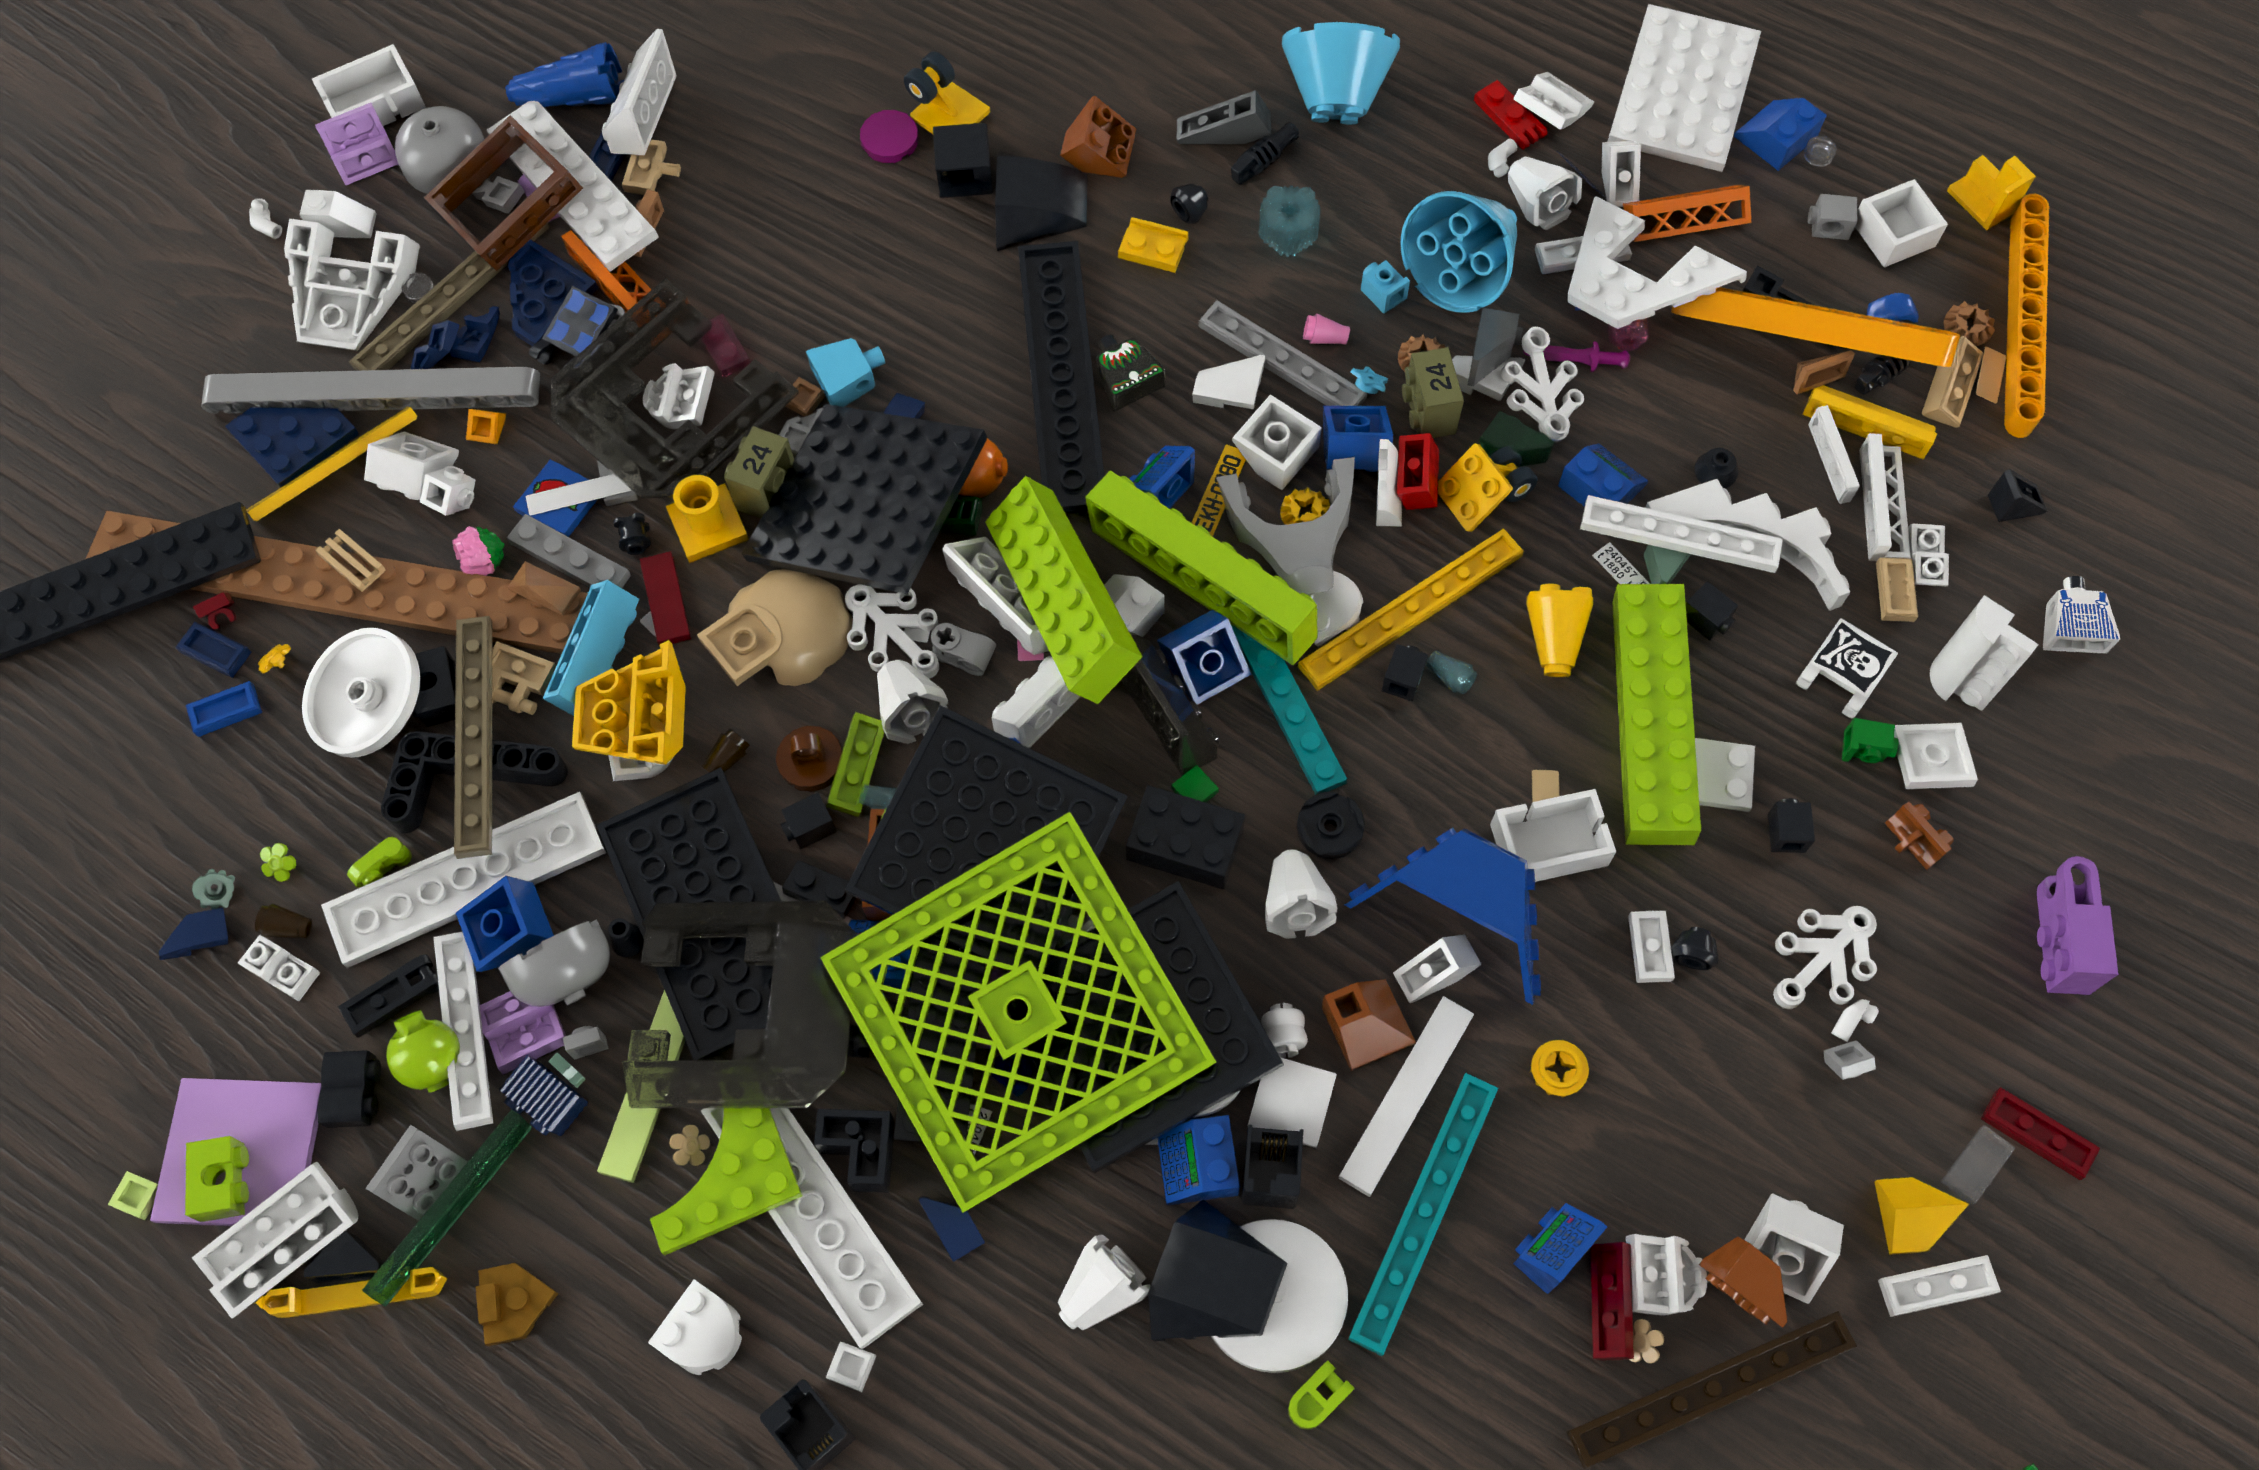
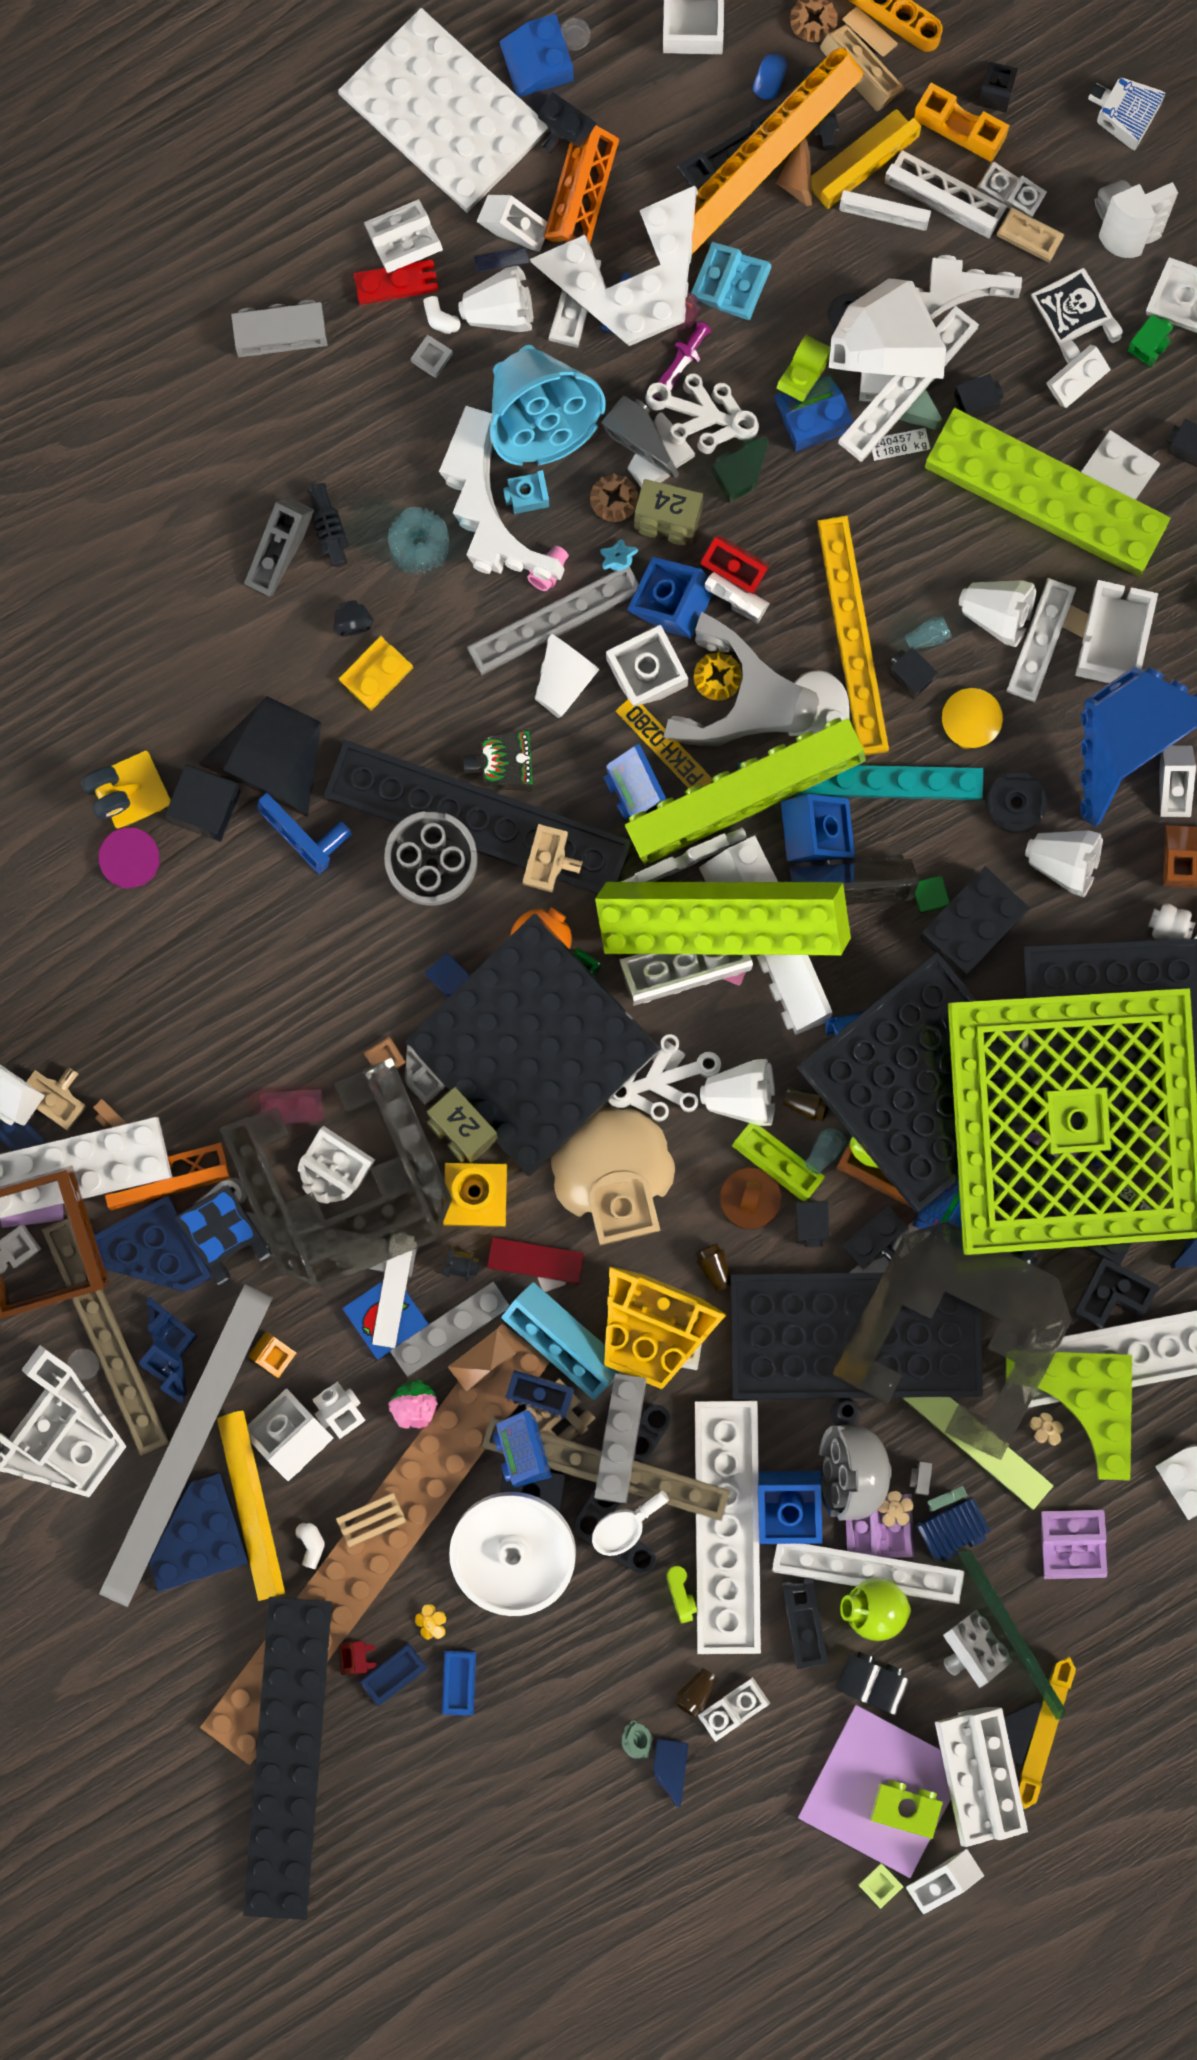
camera: 65 degrees left, 15 degrees up
(157, 1260) = (945, 1881): none -> white slope
(277, 862) = (635, 1680): lime plant -> none
(316, 530) = (313, 1542): none -> white arm
(415, 770) = (623, 1527): none -> white piece
(459, 647) = (522, 1449): none -> blue slope
(504, 728) = (620, 1438): none -> light grey plate
(510, 1302) = (1107, 1614): pearl gold plate -> none
(522, 642) = (539, 1394): none -> dark blue brick
(542, 1029) = (895, 1509): none -> tan plant
(576, 1232) = (1073, 1544): none -> lavender slope
(844, 370) = (379, 1009): medium azure torso -> none
(962, 648) = (717, 1023): light grey piece -> none
(963, 259) = (313, 852): none -> blue piece
(998, 339) = (413, 846): none -> light grey cylinder
(1050, 436) = (548, 859): none -> tan plate
(1099, 141) = (241, 668): dark orange slope -> none
(1119, 561) = (691, 857): none -> white piece
(1339, 67) = (290, 415): medium azure cone -> none
(1346, 247) = (468, 469): none -> white arch
(1392, 748) = (972, 718): none -> yellow dish
(1420, 51) = (279, 328): none -> light grey brick
(1461, 164) = (431, 356): none -> light grey plate
(1482, 482) = (773, 524): yellow plate -> none
(1507, 777) = (1041, 640): none -> white tile
(1516, 723) = (1000, 607): none -> white cone
(1559, 625) = (935, 527): yellow cone -> none
(1646, 452) = (805, 368): none -> lime plate
(1682, 363) = (731, 280): none -> medium azure slope
(1714, 488) = (889, 334): none -> white brick
(1736, 170) = (564, 122): none -> black plate
(1788, 692) = (1078, 376): none -> white plate
(1833, 216) = (653, 67): light grey brick -> none
(1961, 497) = (942, 114): none -> light orange arch

